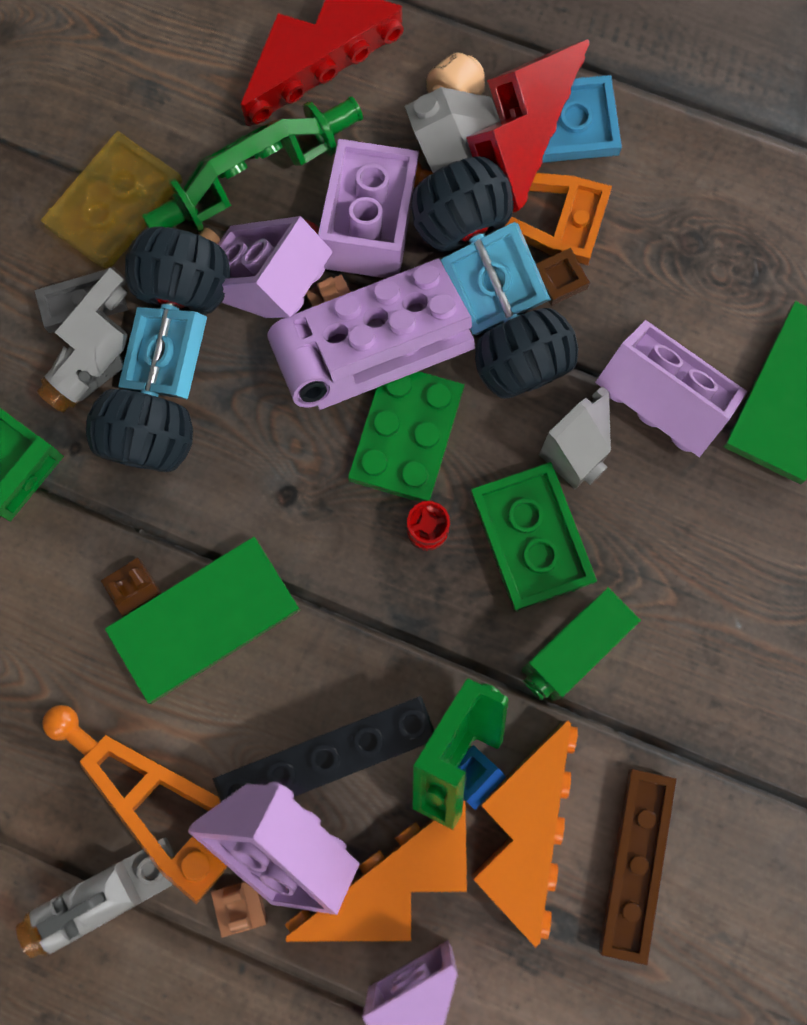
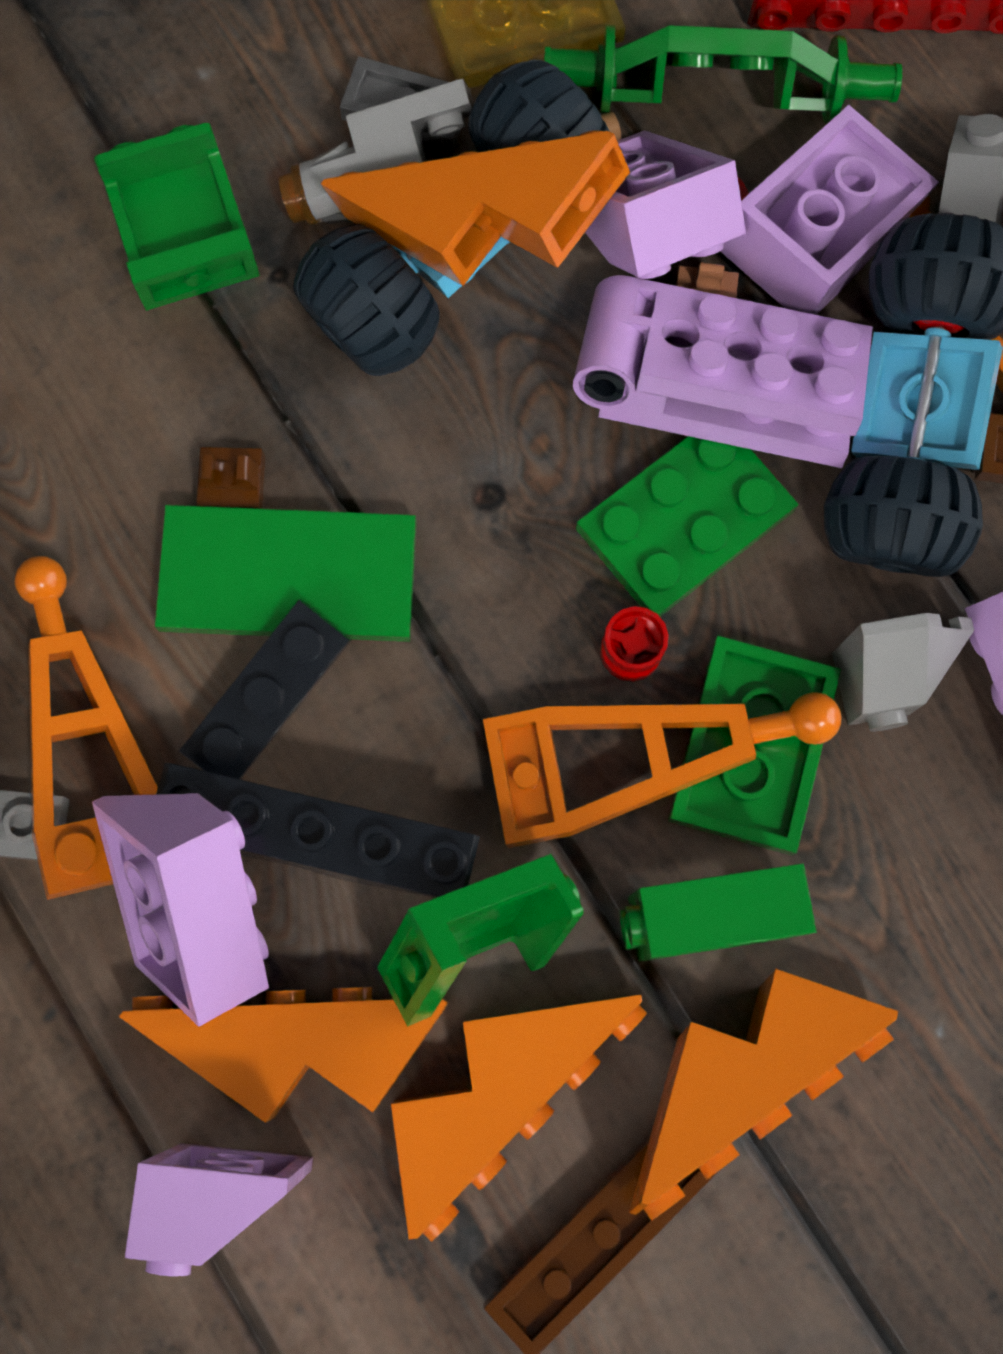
camera: 30 degrees right, 0 degrees up
(162, 342) = (461, 205): none -> orange slope
(238, 908) = (93, 941): nougat tile -> none
(239, 698) = (266, 693): none -> black plate
(421, 639) = (530, 778): none -> orange plate
(481, 777) = (482, 987): blue plate -> none
(652, 735) = (732, 1085): none -> orange slope

